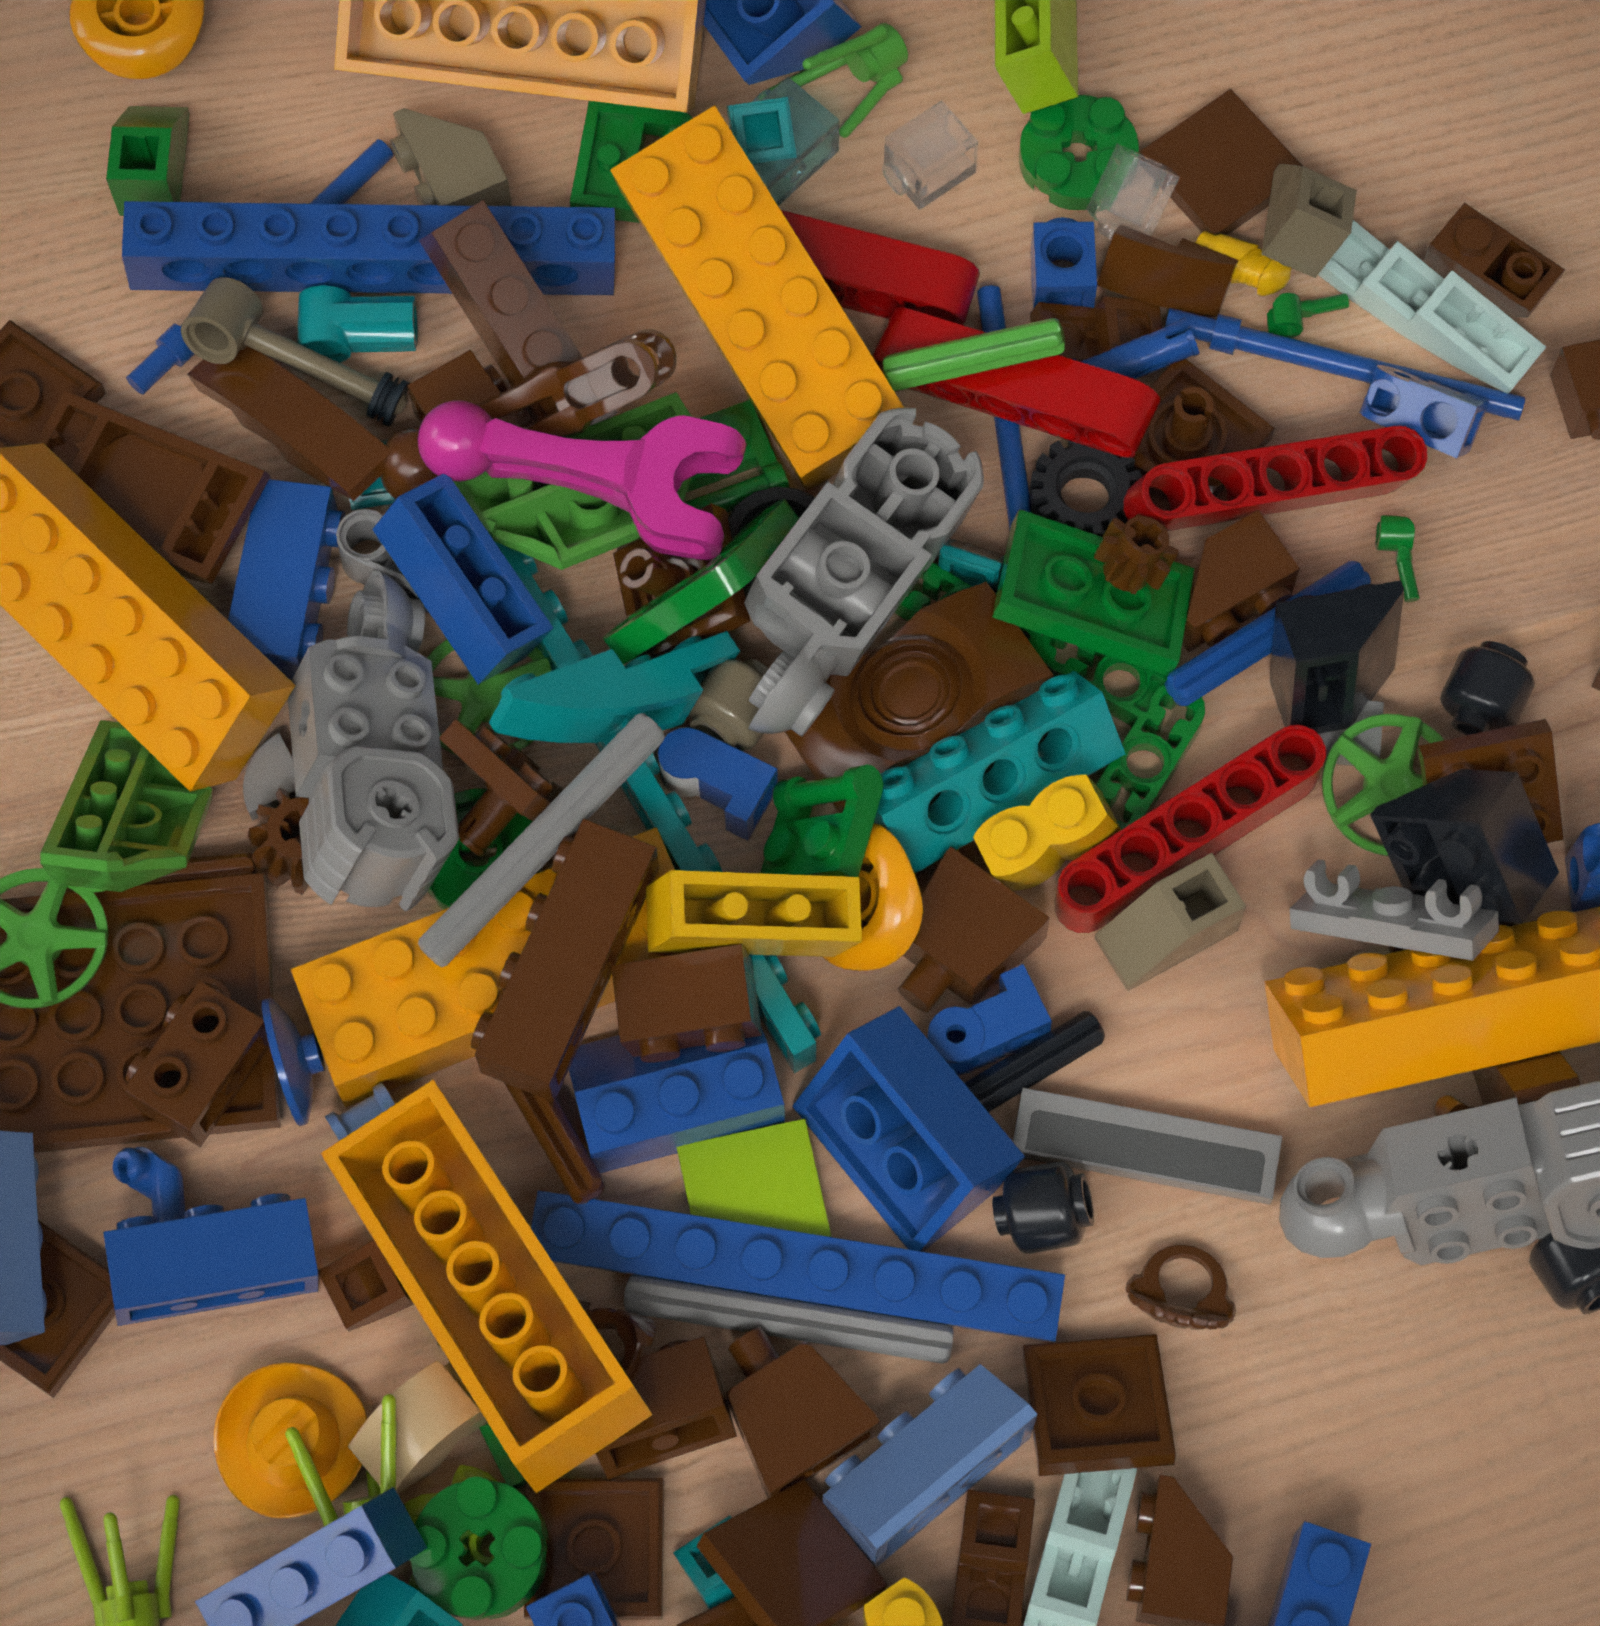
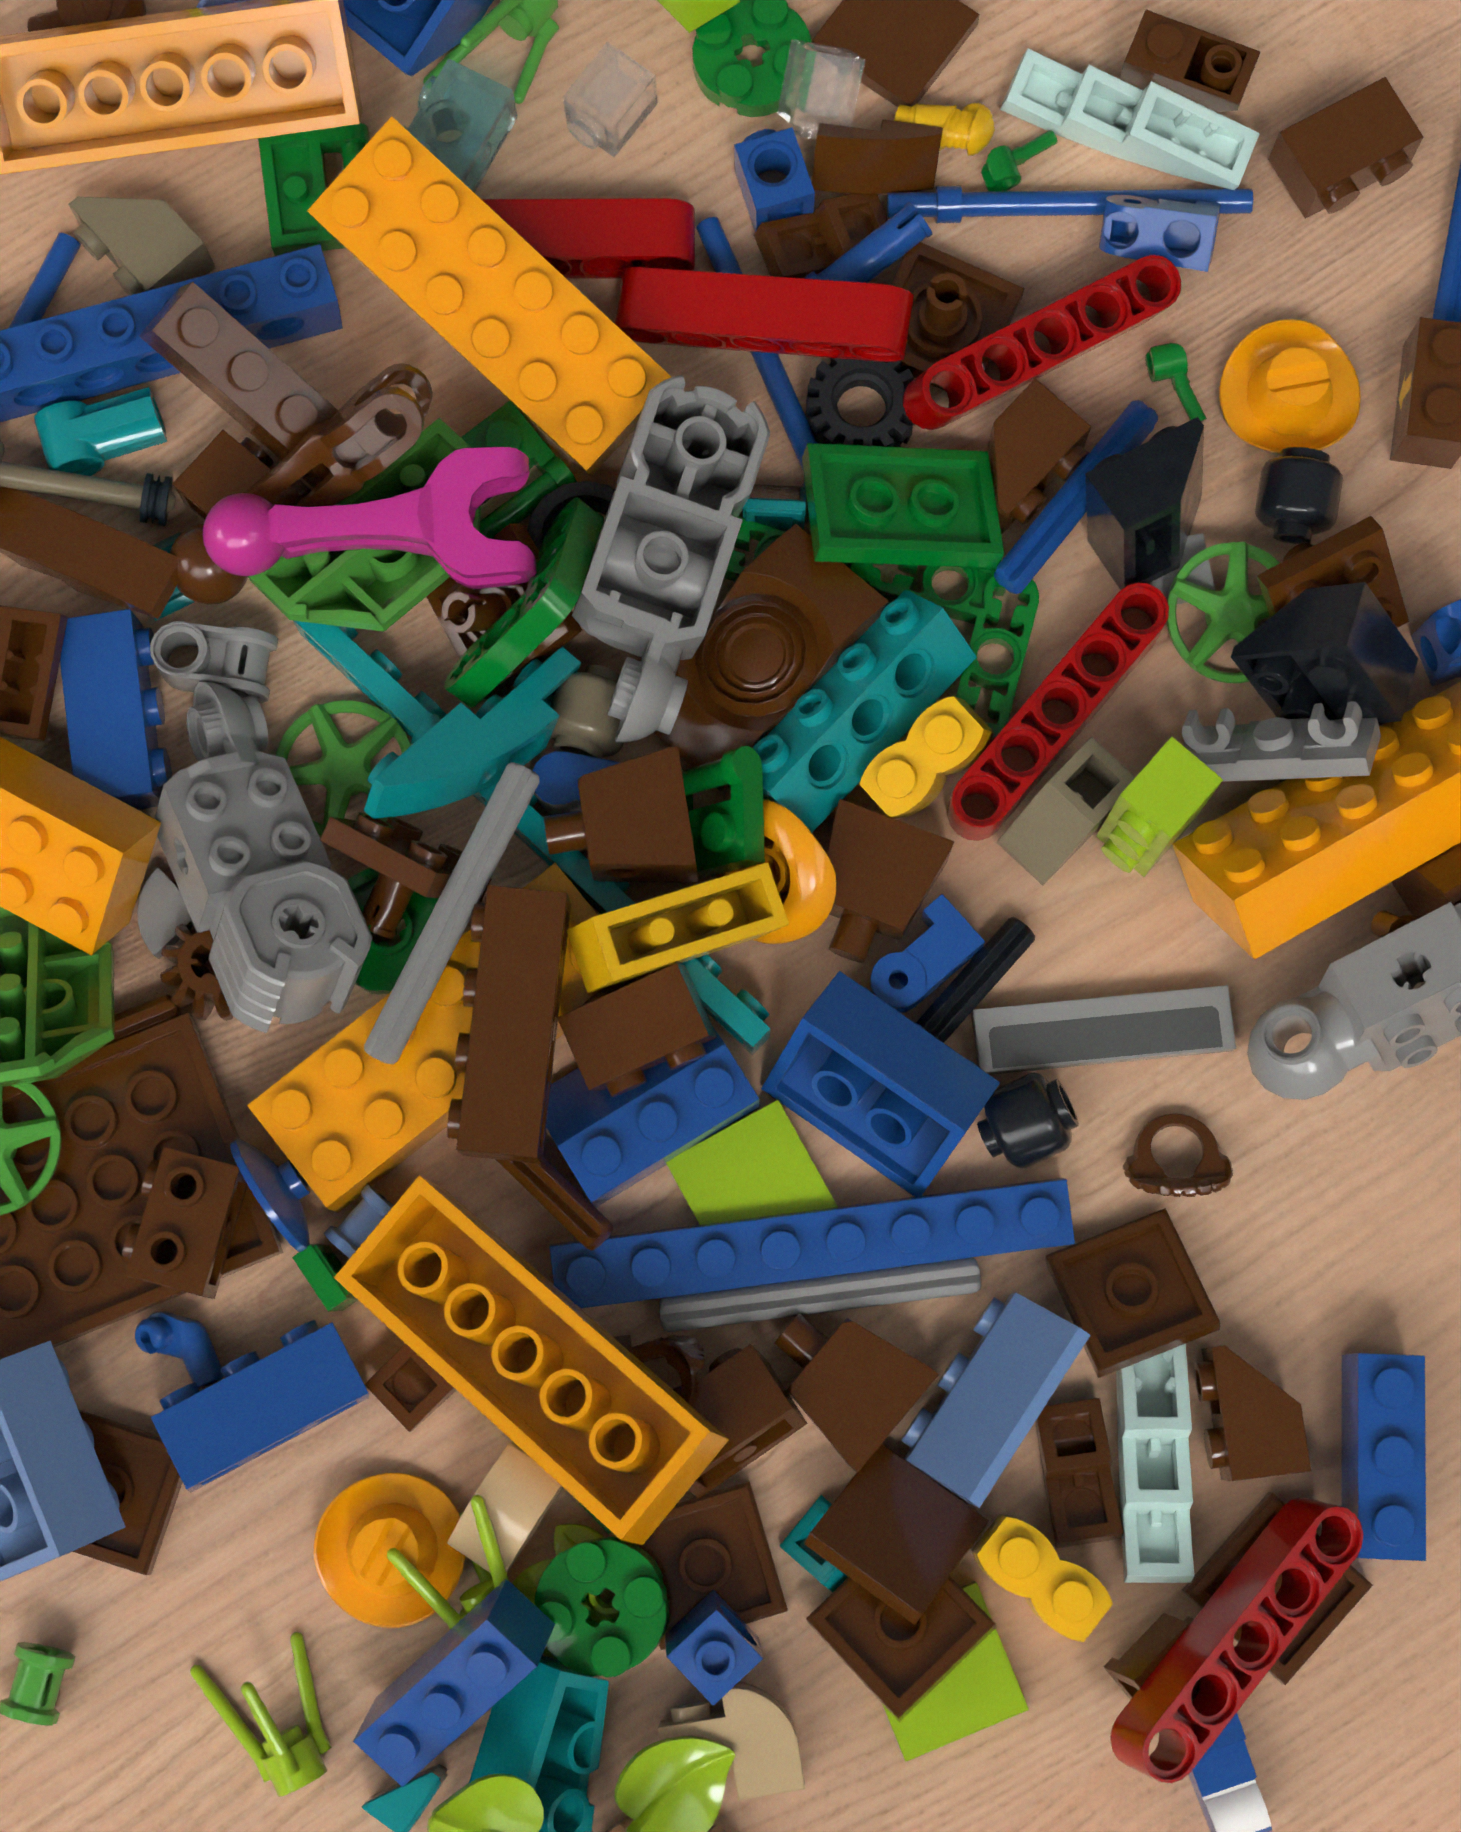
camera: 15 degrees left, 10 degrees up
(308, 1143) = (319, 1267): none -> green tile
(462, 577) = (289, 668): blue brick -> none
(740, 807) = (631, 822): none -> reddish brown torso
(763, 129) = (441, 121): teal slope -> none
(974, 354) = (720, 299): bright green axle -> none
(1136, 553) = (934, 458): reddish brown gear -> none
(1254, 936) = (1157, 808): none -> lime brick
(1306, 218) = (998, 67): dark tan slope -> none
(1509, 589) = (1289, 388): none -> light orange hat

